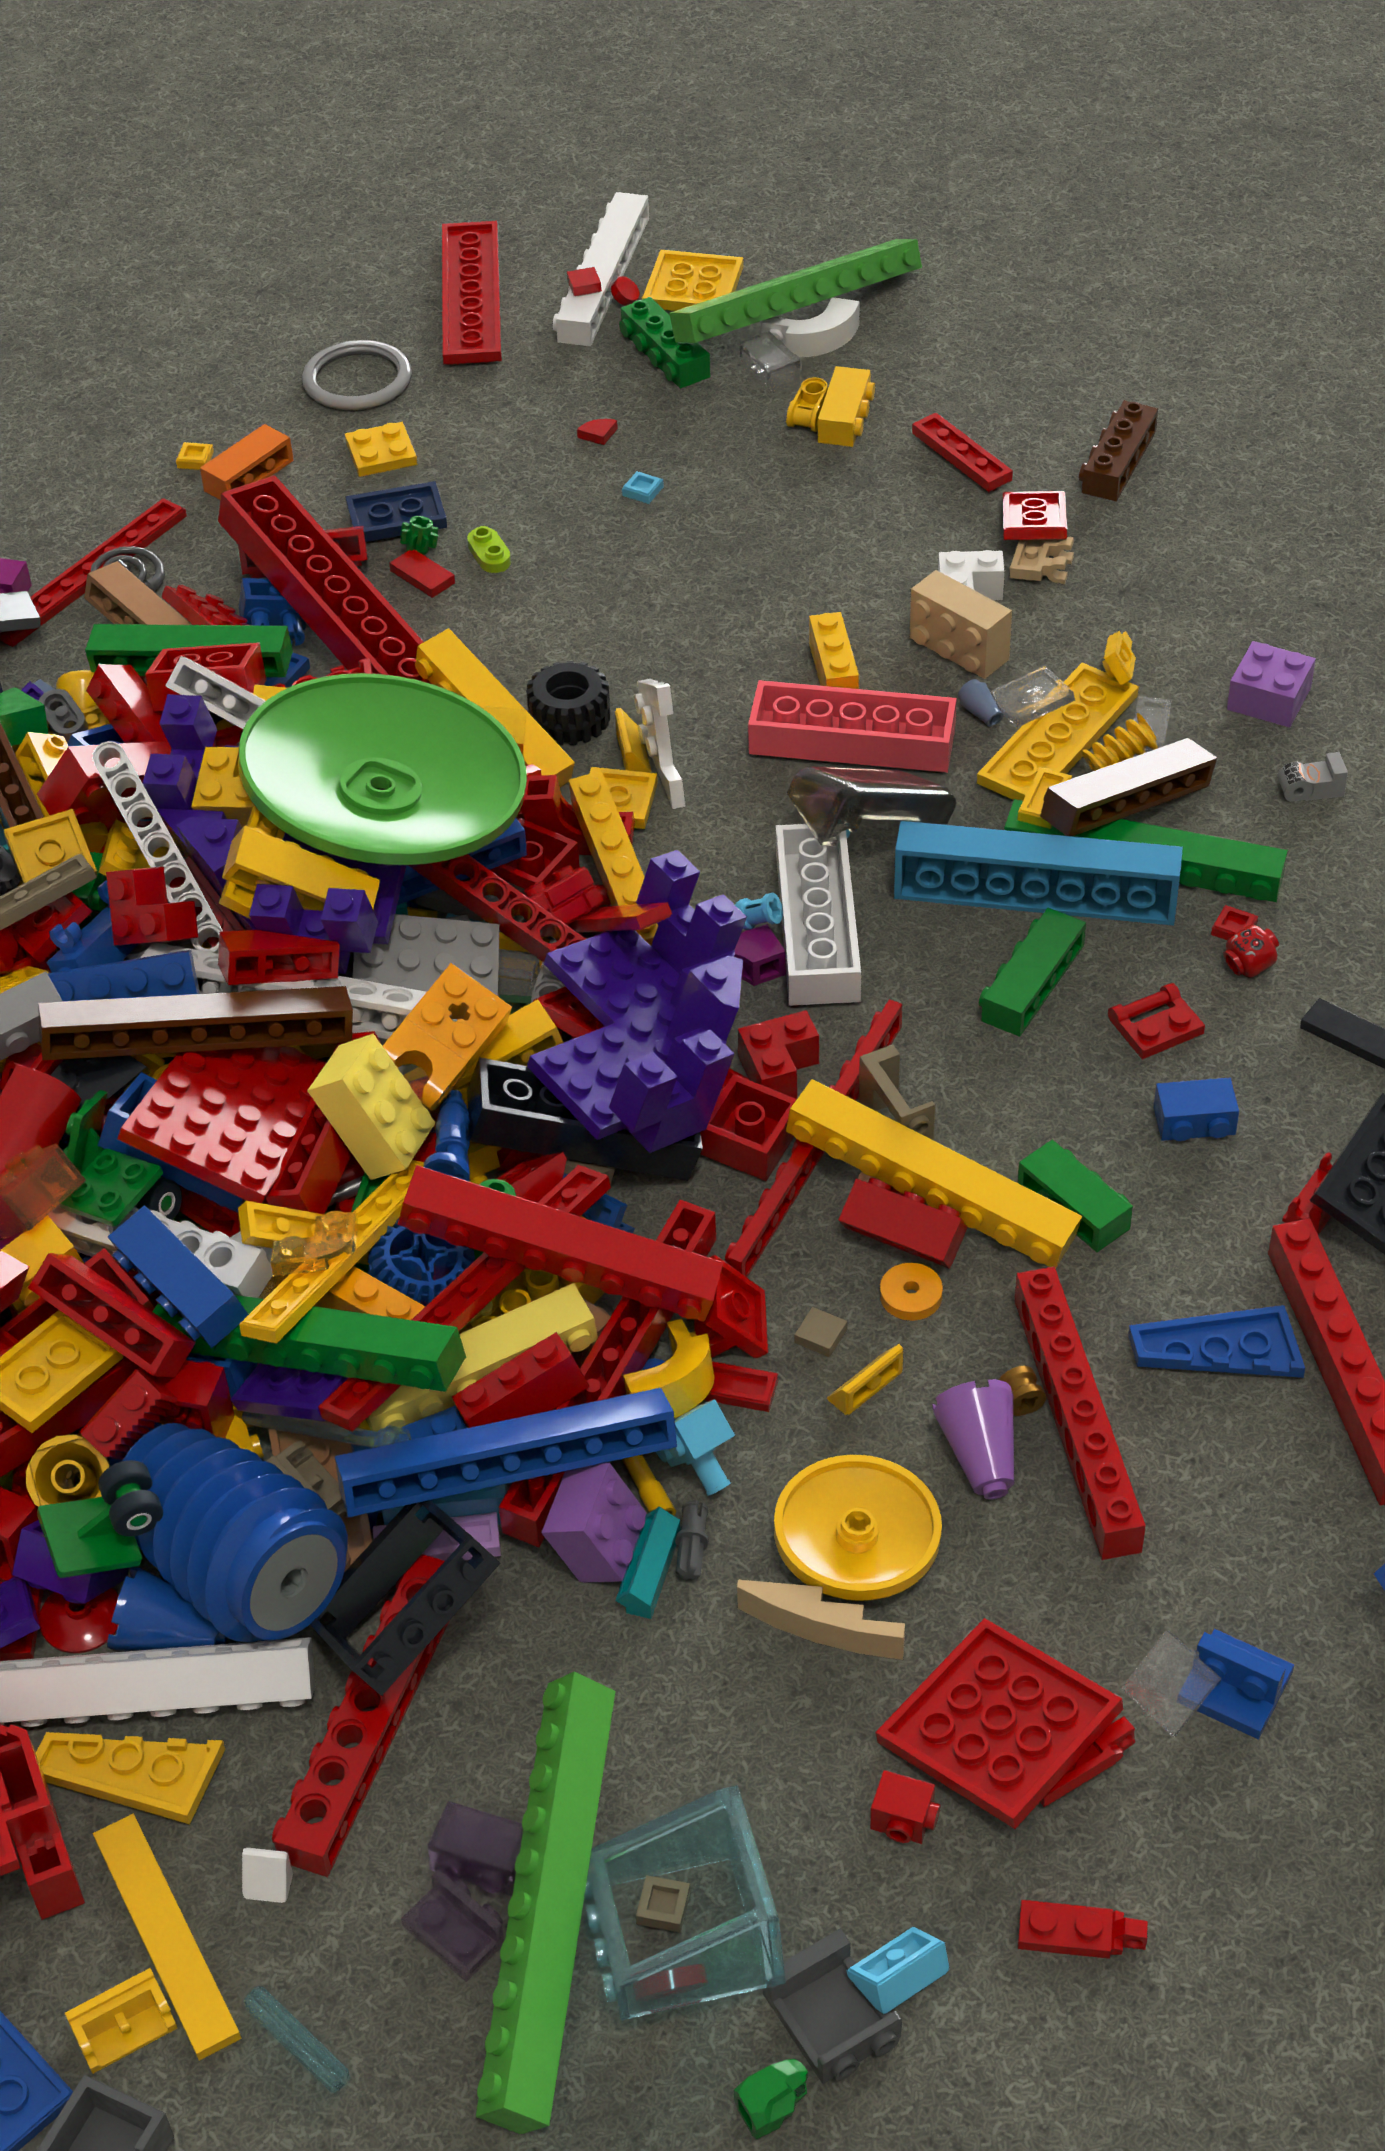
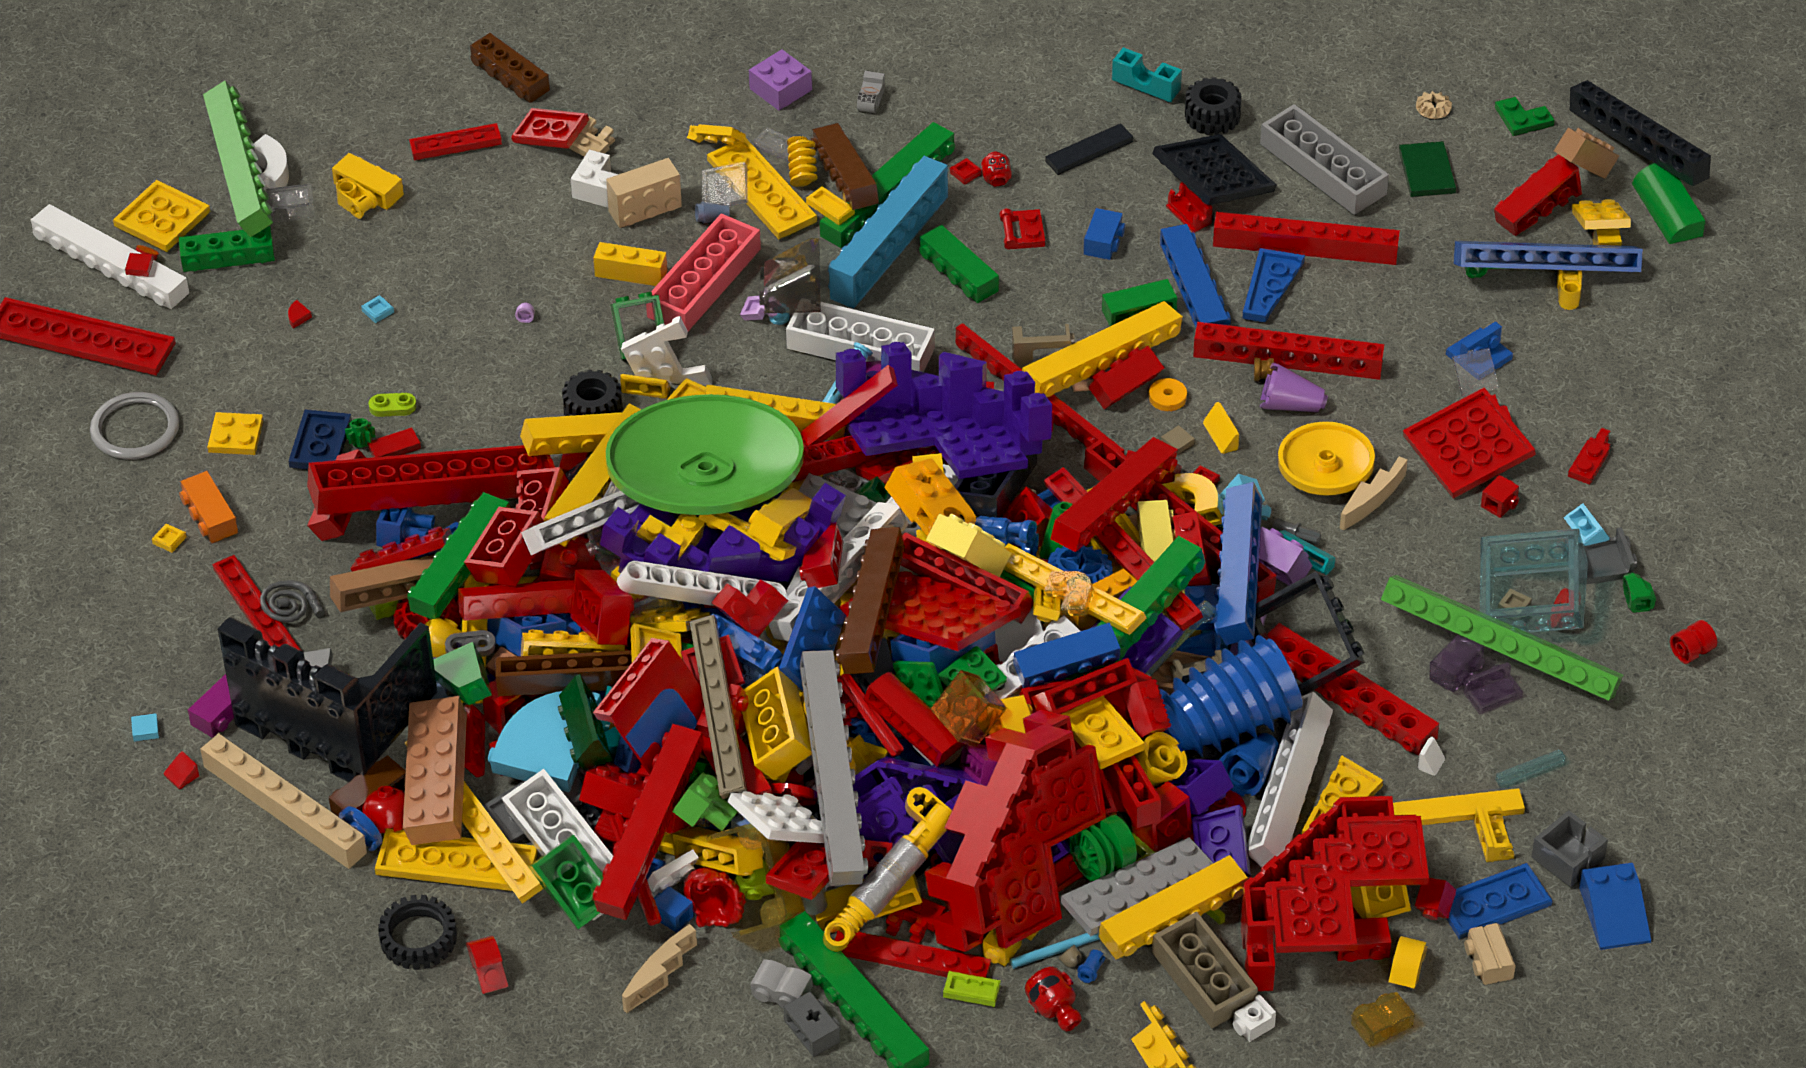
camera: 70 degrees left, 0 degrees up
(102, 1530) = (1210, 753): green plate -> none
(691, 681) = (624, 302): none -> green window
(702, 602) = (525, 313): none -> lavender hinge
(1162, 1246) = (1193, 276): none -> blue brick

